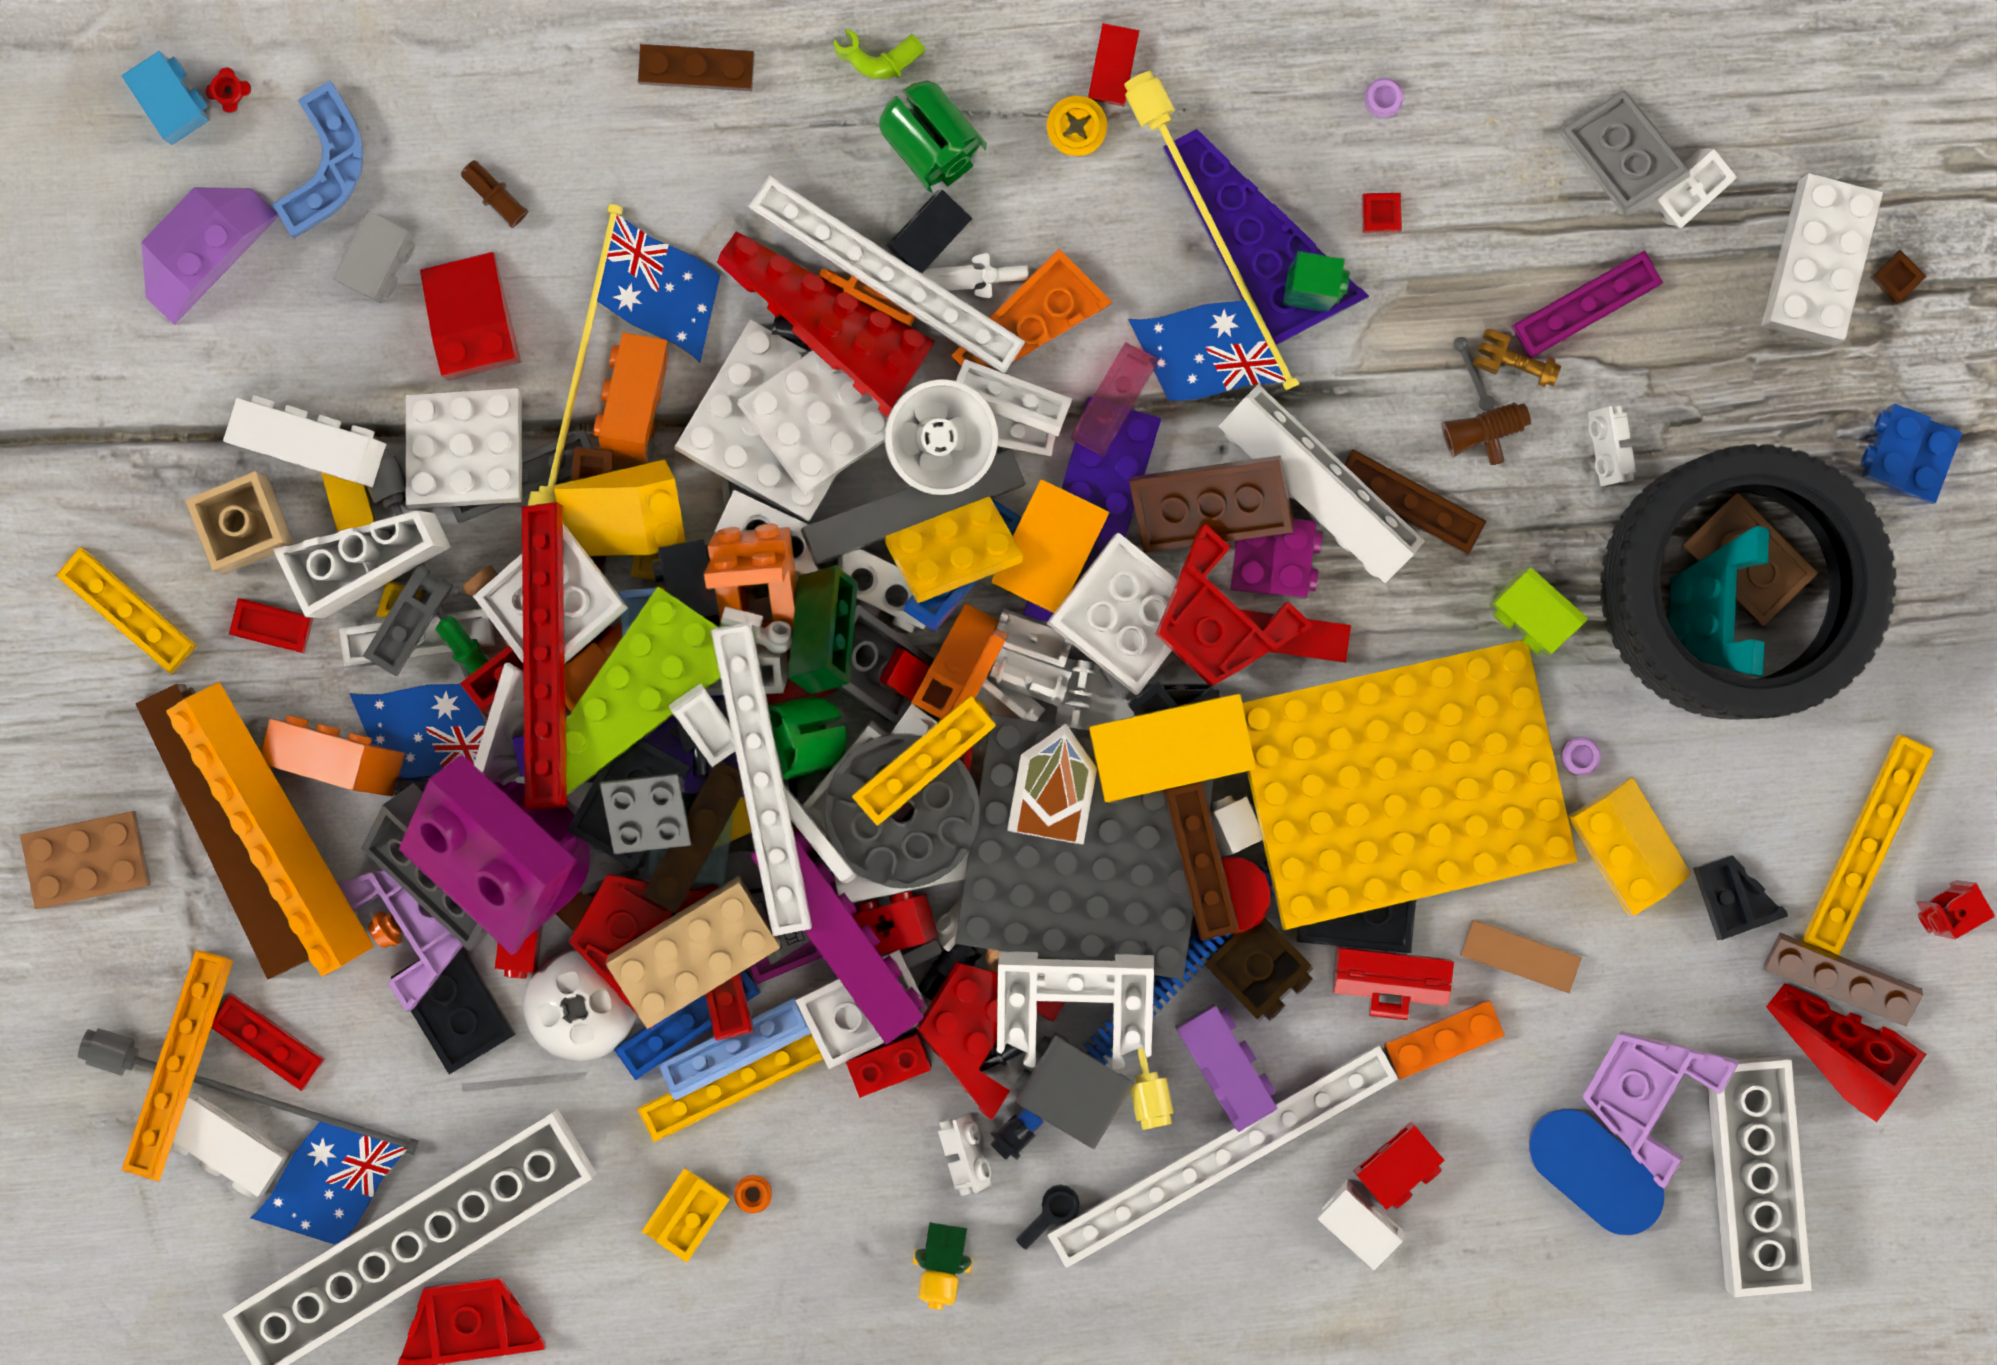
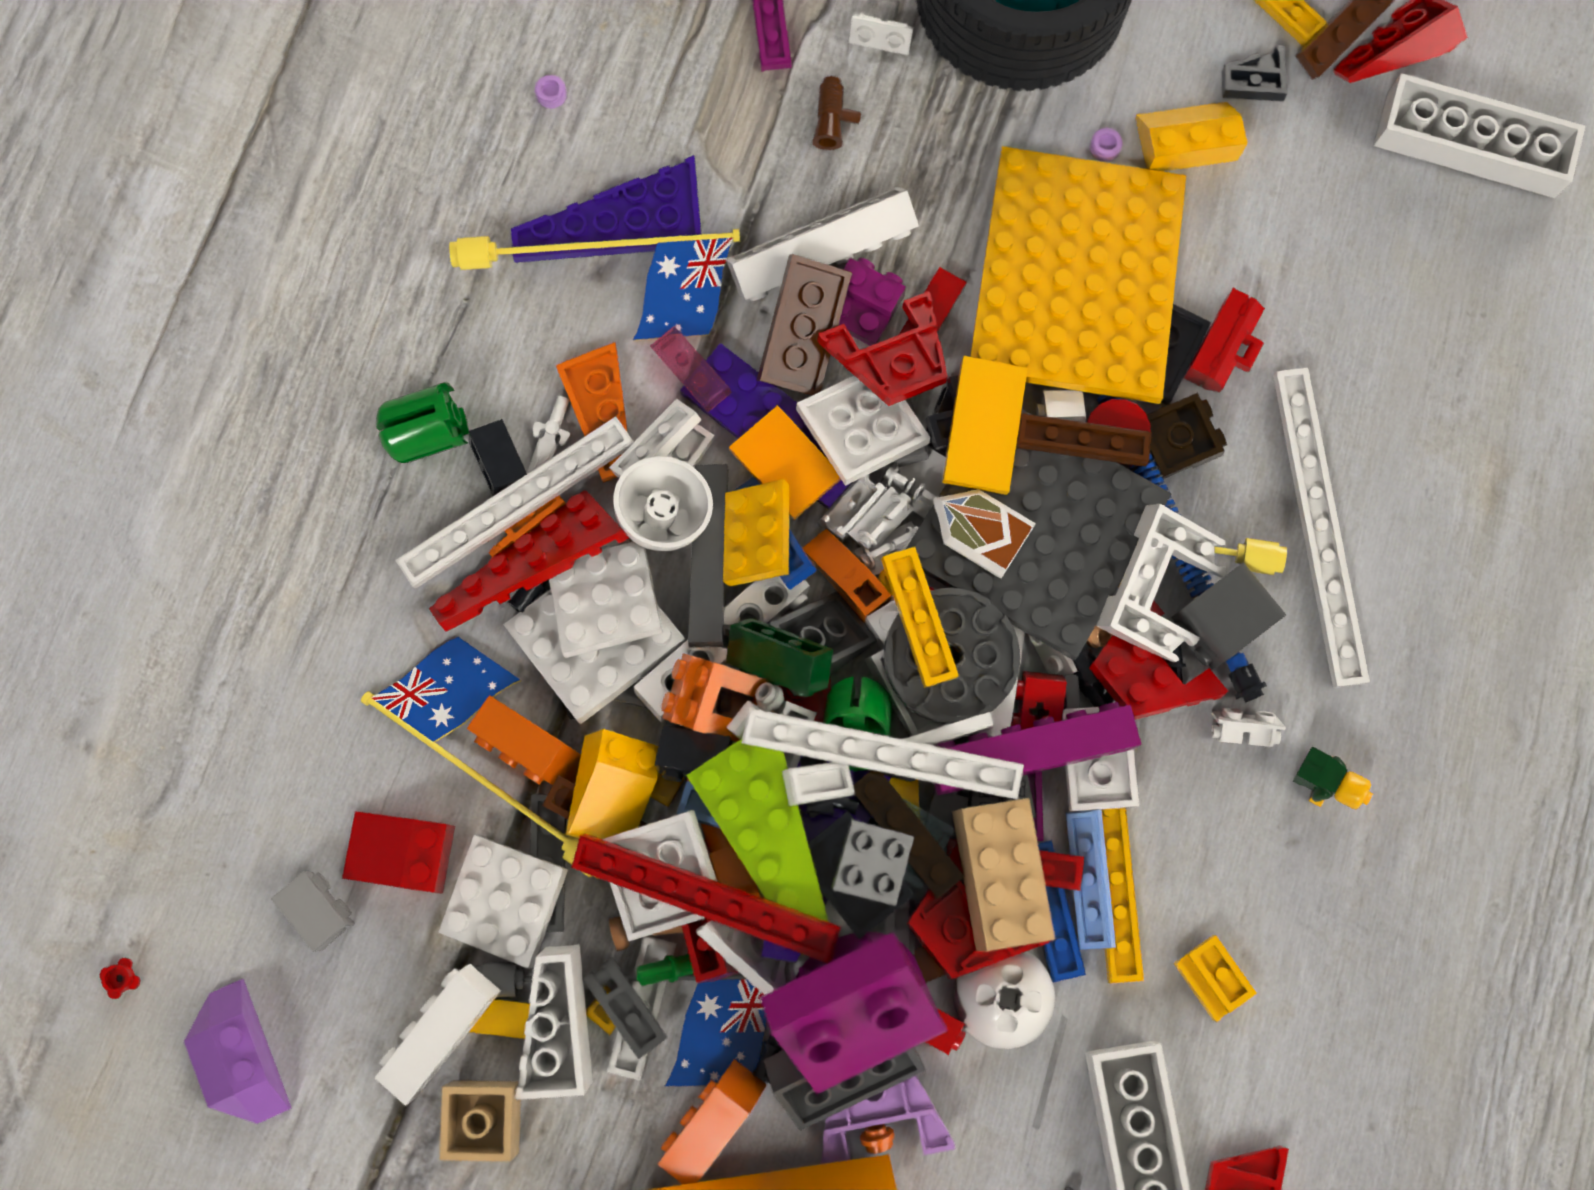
camera: 70 degrees left, 10 degrees down
(165, 97) = (98, 1034): dark azure brick -> none
(270, 625) = (579, 1131): red tile -> none
(339, 166) = (228, 911): medium blue plate -> none
(460, 1014) = (974, 1103): black tile -> none
(494, 193) = (308, 790): reddish brown axle -> none
(696, 67) = (285, 587): reddish brown plate -> none
(744, 1202) = (1226, 910): orange plate -> none
(884, 66) = (353, 439): lime piece -> none
(889, 1064) = (1154, 757): red hinge -> none
(904, 673) = (839, 614): red tile -> none
(982, 666) = (862, 549): orange tile -> none
(1058, 1206) = (1315, 669): black plate -> none
(1079, 108) = (456, 310): yellow gear -> none
(1113, 64) = (434, 272): red tile -> none
(1227, 1066) = (1254, 490): medium lavender wedge -> none
(1315, 282) = (666, 173): green brick -> none
(1361, 1225) = (1413, 441): white hinge -> none
(1381, 212) = (635, 126): red tile -> none
(1400, 1167) = (1378, 392): red brick -> none
(1418, 504) = (873, 180): reddish brown tile -> none
(1444, 1039) = (1287, 324): orange plate -> none
(1486, 402) = (810, 109): dark grey hinge -> none
(1500, 354) = (776, 86): pearl gold hinge -> none
(1520, 956) = (1243, 245): medium nougat tile -> none
(1537, 612) = (985, 124): lime slope -> none
(1595, 1171) = (1430, 254): blue tile -> none
(1637, 1085) = (1377, 193): lavender wing -> none

